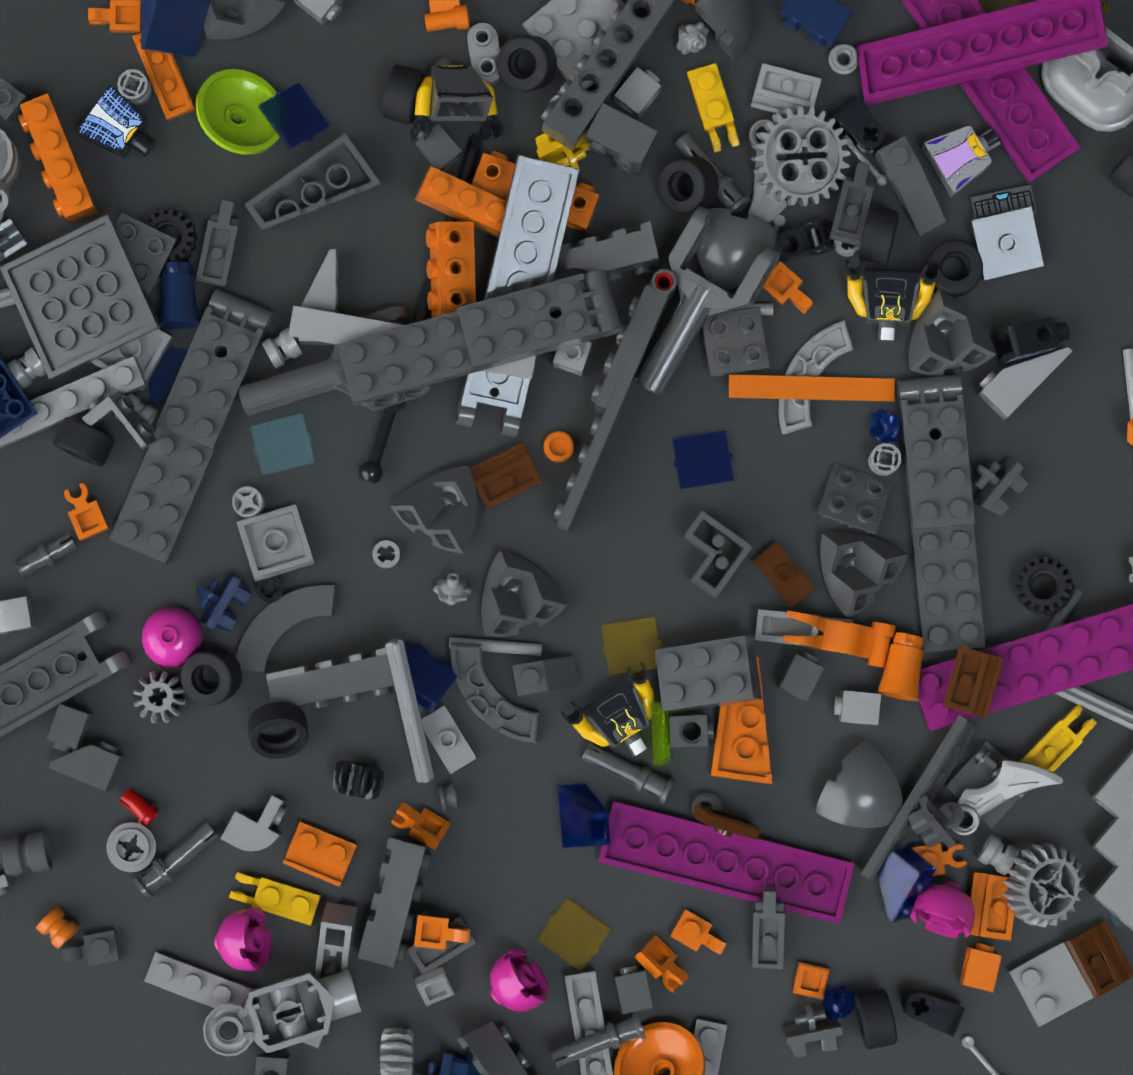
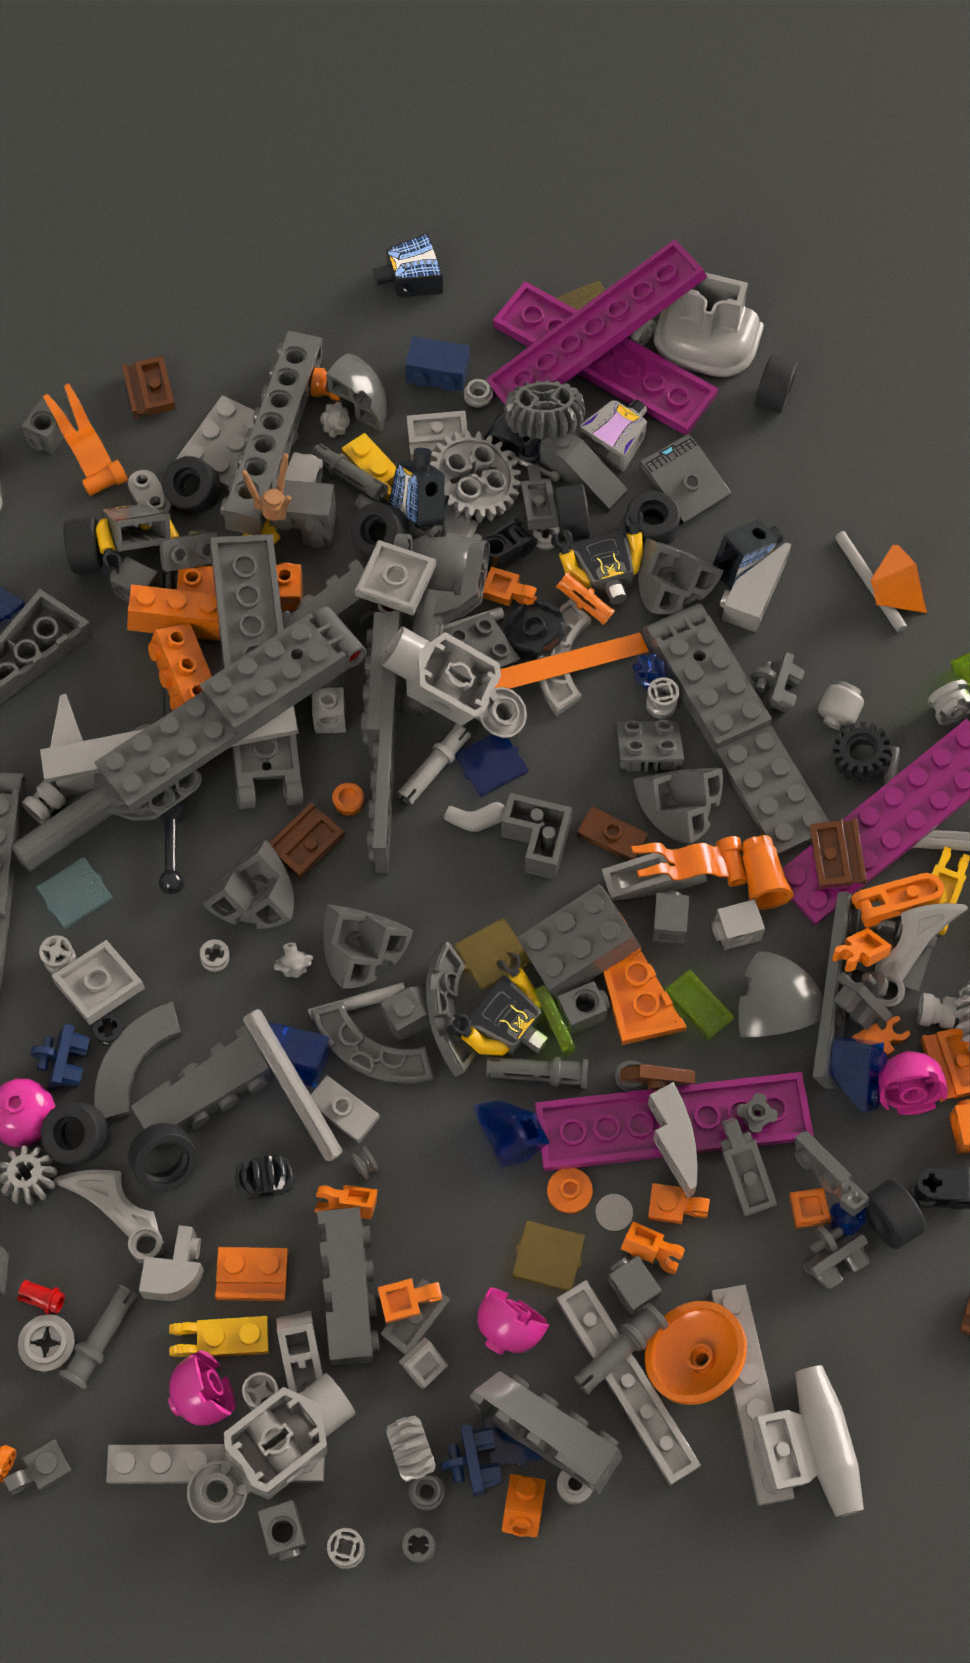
camera: 25 degrees left, 20 degrees down
(222, 736) = (106, 1192): none -> light grey piece
(292, 959) = (257, 1388): none -> light grey wheel
(500, 144) = (186, 550): none -> dark grey bracket
(571, 668) = (441, 988): none -> dark grey tile
(592, 134) = (272, 502): none -> medium nougat plant
(613, 886) = (569, 1190): none -> orange piece
(644, 918) = (614, 1212): none -> light grey sticker
(648, 444) = (442, 754): none -> light grey pin
(667, 515) = (476, 820): none -> light grey arm
(677, 93) = (340, 466): none -> dark grey pin
(678, 258) = (395, 577): none -> light grey tile
(693, 384) = (455, 681): none -> light grey brick
(720, 883) = (675, 1136): none -> light grey slope
(739, 161) = (419, 489): none -> black torso
(794, 764) = (699, 1004): none -> clear neon green tile
(796, 341) = (535, 628): none -> black tile
(806, 892) = (757, 1123): none -> dark grey plate
(837, 966) = (830, 1173): none -> dark grey hinge
(855, 329) = (599, 611): none -> orange pin
(892, 129) = (544, 410): none -> dark grey gear
(956, 778) = (863, 948): none -> orange plate
(1010, 743) = (897, 897): none -> orange plate
(1046, 531) = (840, 705): none -> light grey head

